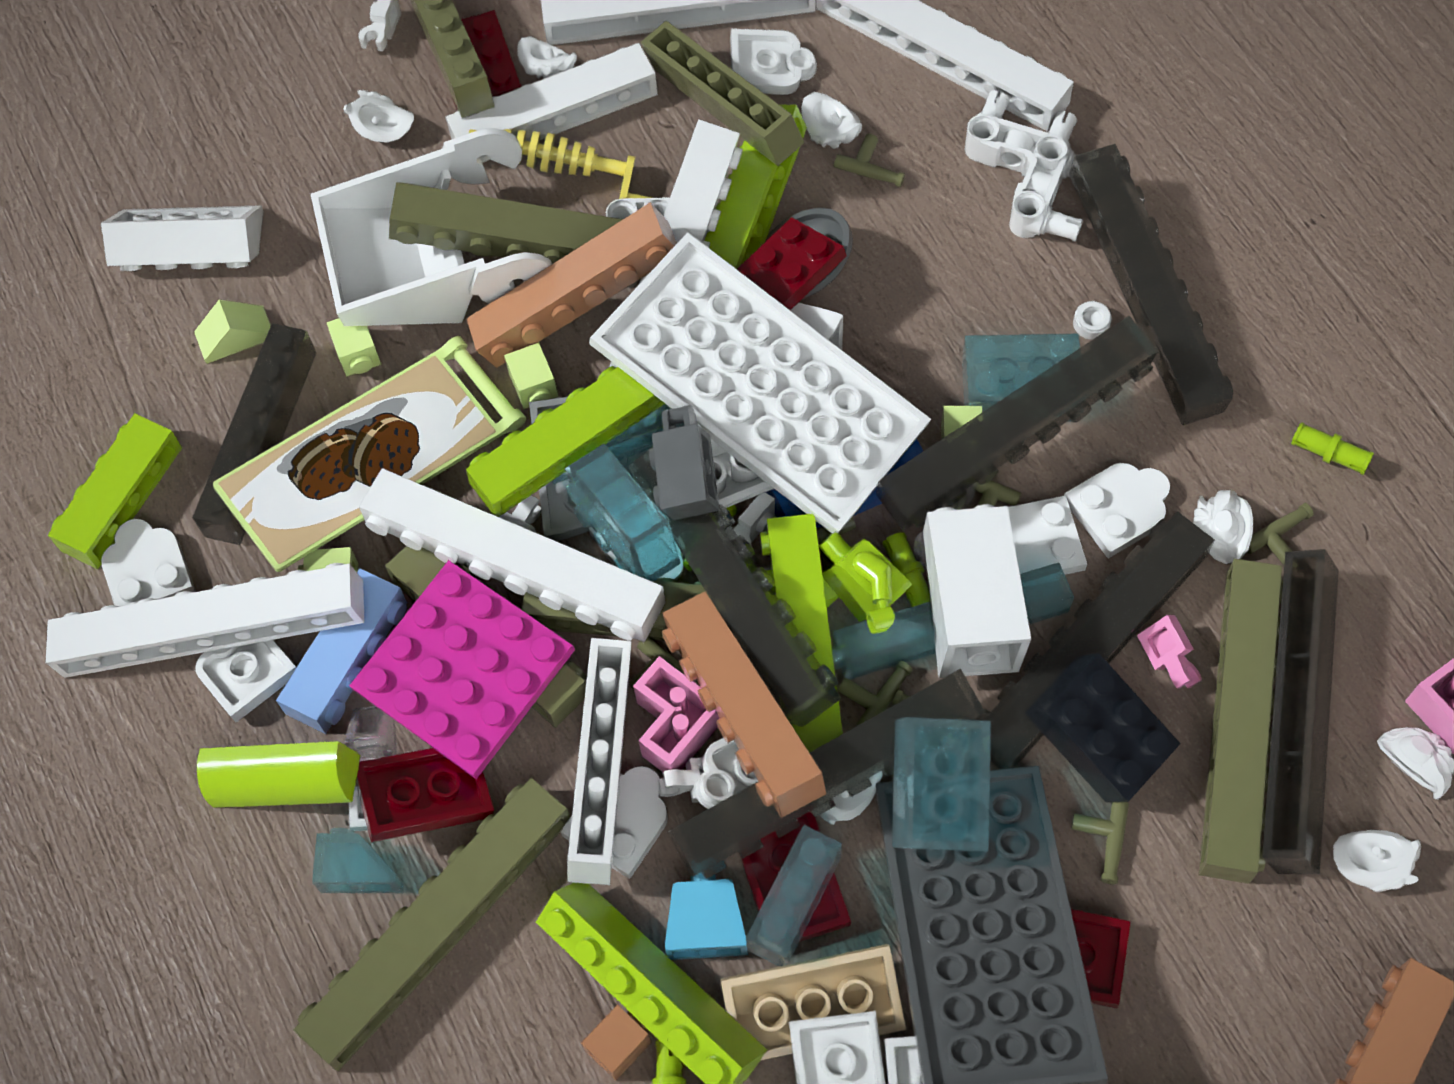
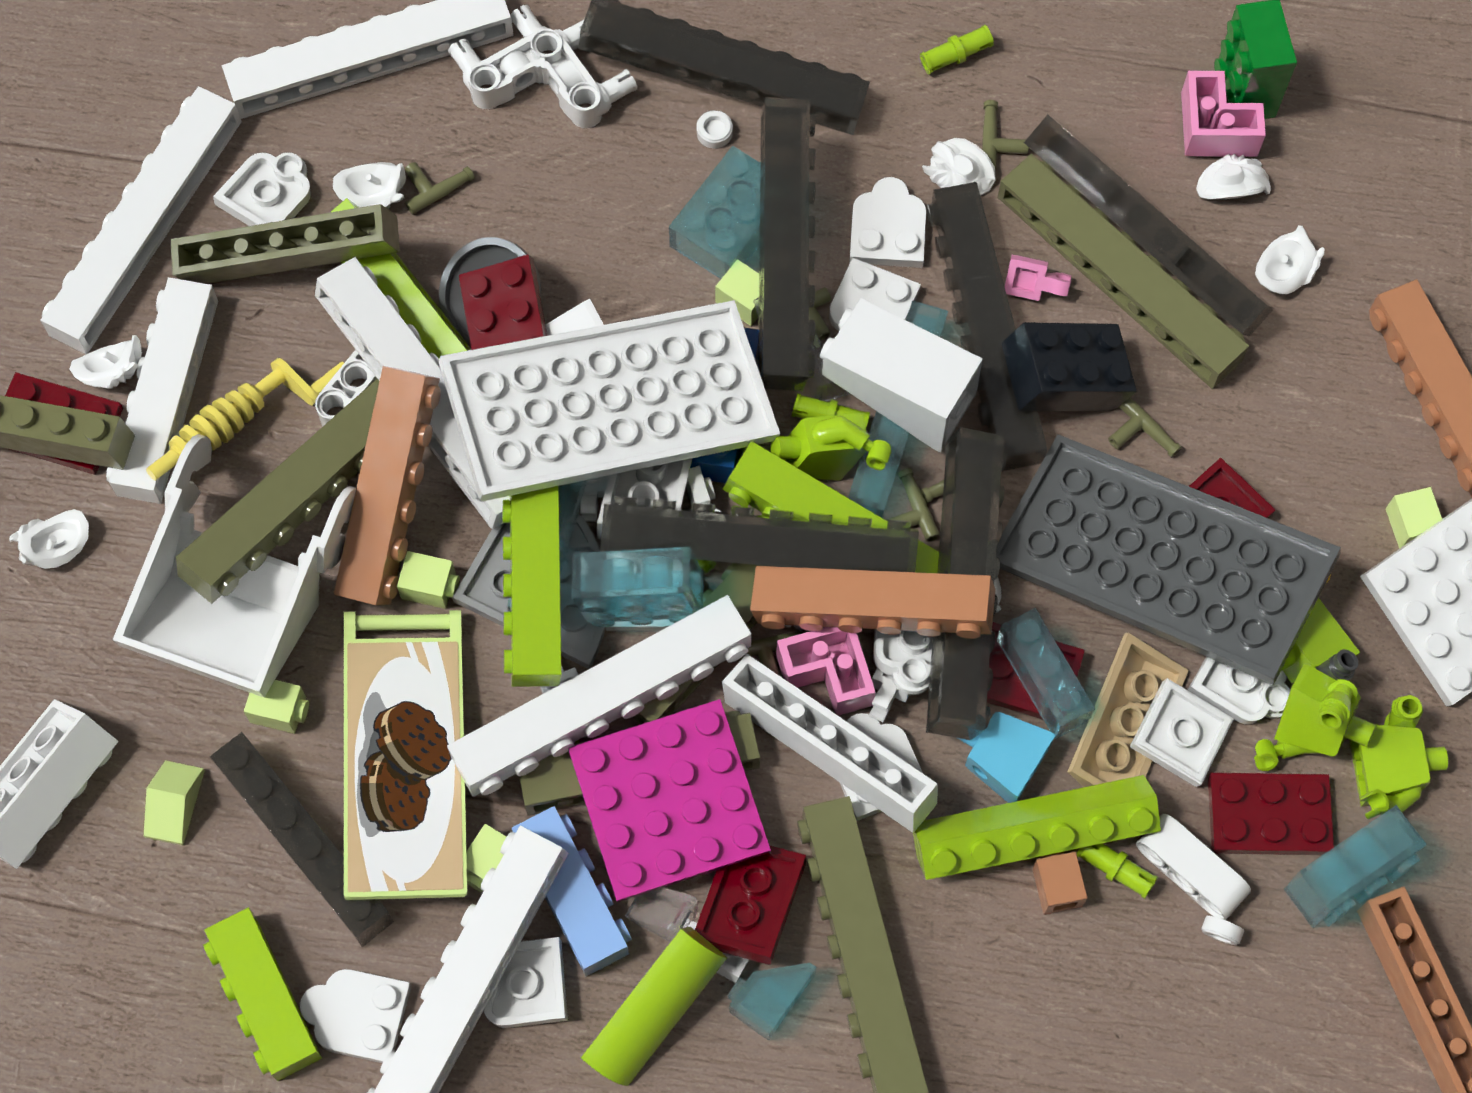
camera: 60 degrees left, 5 degrees up
(683, 466) = (649, 503): dark grey brick -> none
(941, 784) = (1044, 504): clear light blue brick -> none

